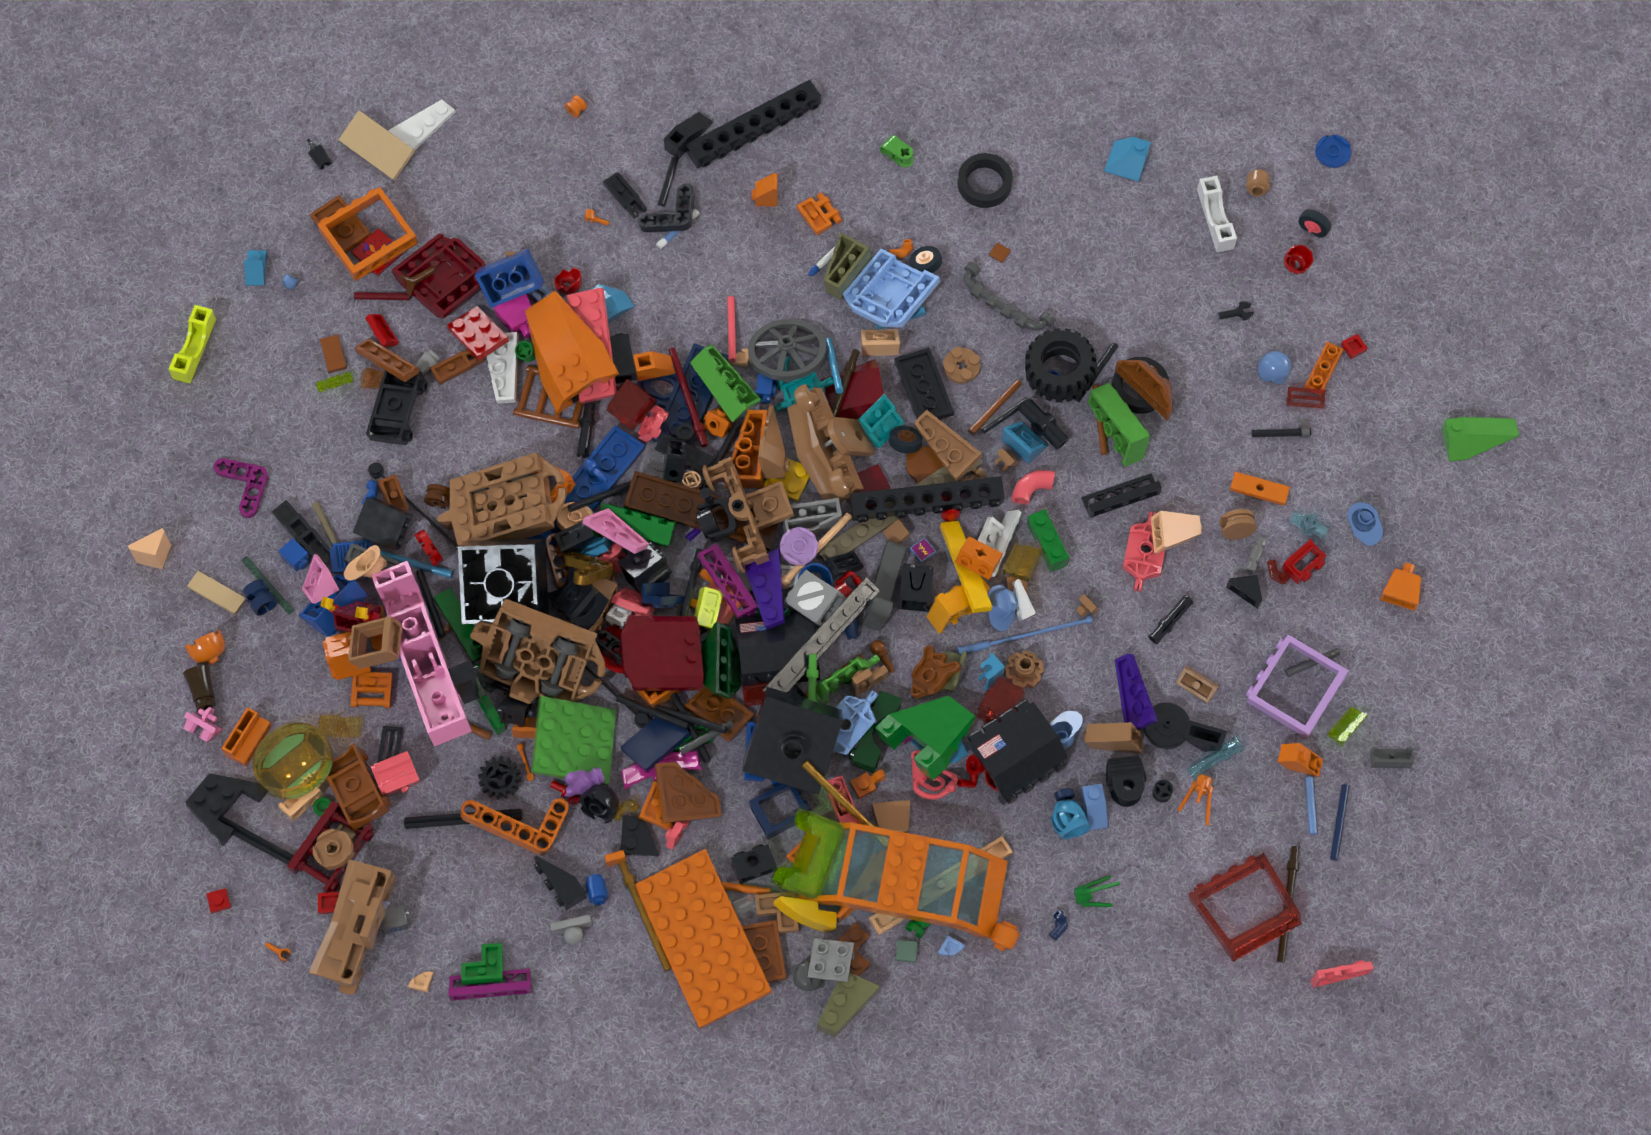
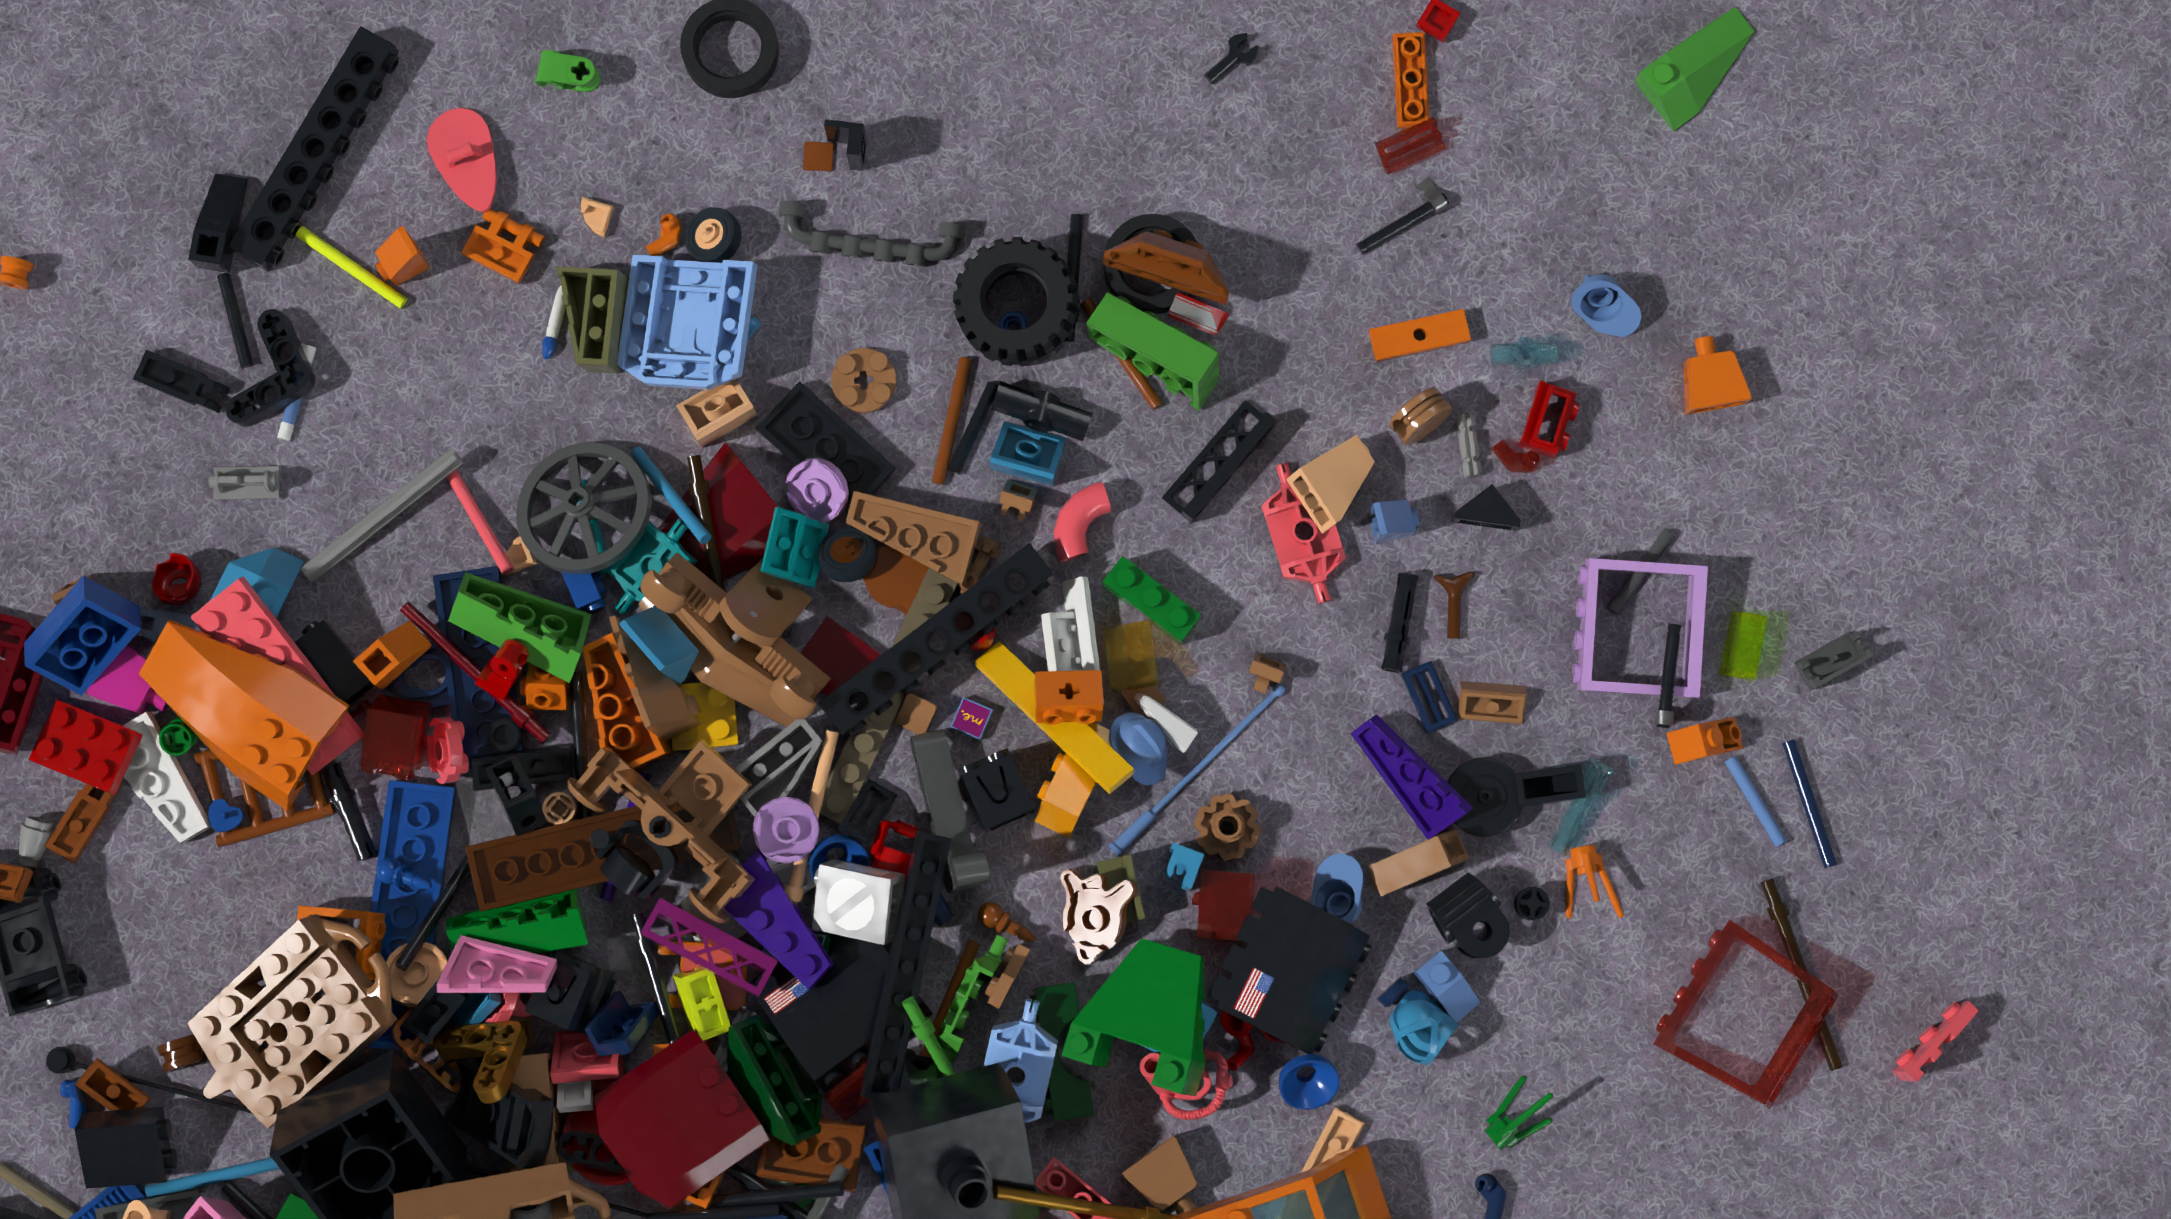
camera: 30 degrees left, 15 degrees up
(429, 547) = (221, 1148): red plate -> none
(524, 400) = (223, 816): none -> blue piece
(590, 214) = (146, 446): orange hand -> none
(628, 256) = (245, 483): none -> light grey hinge
(685, 303) = (381, 515): none -> light grey axle
(705, 399) = (503, 669): none -> red leg
(739, 187) = (351, 267): none -> neon yellow bar
(789, 427) = (662, 642): none -> dark azure slope
(824, 164) = (465, 156): none -> coral shield
(865, 784) = (1090, 1140): orange plate -> none
(873, 223) = (596, 215): none -> light nougat tile
(909, 401) = (817, 489): none -> lavender tile
(991, 821) = (1312, 1090): none -> blue piece
(1021, 247) = (851, 134): none -> black panel
(1150, 419) = (1197, 314): none -> sticker
(1164, 679) = (1416, 700): none -> dark blue tile
(1195, 566) = (1392, 520): none -> medium blue slope
(1209, 618) = (1454, 588): none -> reddish brown piece
(1274, 367) = (1338, 122): medium blue helmet -> none
(1284, 732) = (1664, 714): none -> black piece

